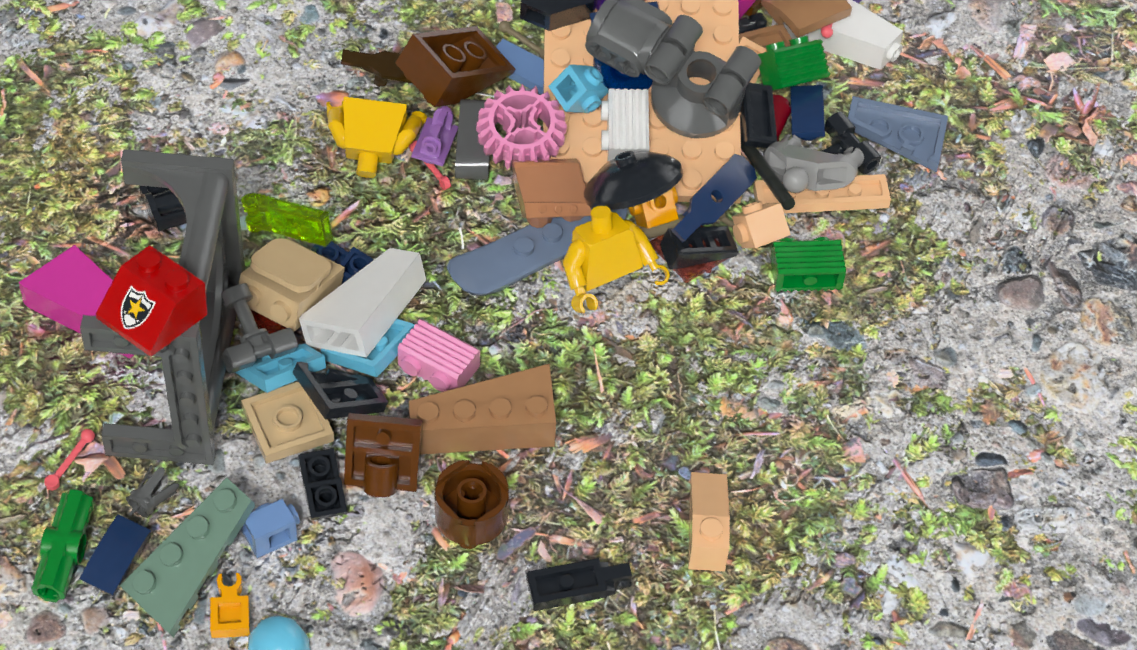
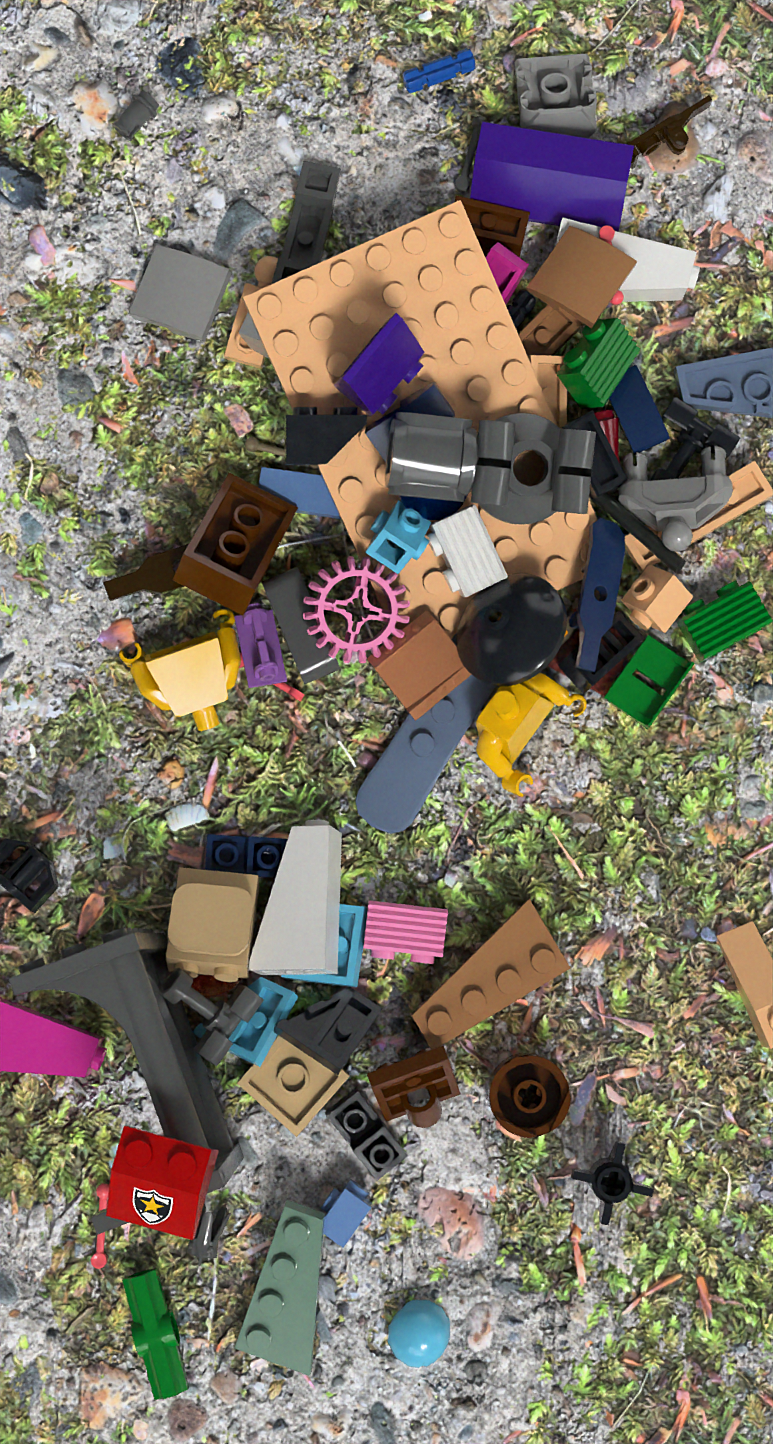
camera: 20 degrees left, 30 degrees up
(115, 555) = (212, 1319): dark blue slope -> none
(229, 612) = (356, 1324): light orange plate -> none
(286, 219) = (161, 840): clear neon green plate -> none
(505, 589) = (618, 1189): none -> black brick
(576, 583) = (667, 1126): black hinge -> none
(738, 272) = (659, 666): none -> green piece

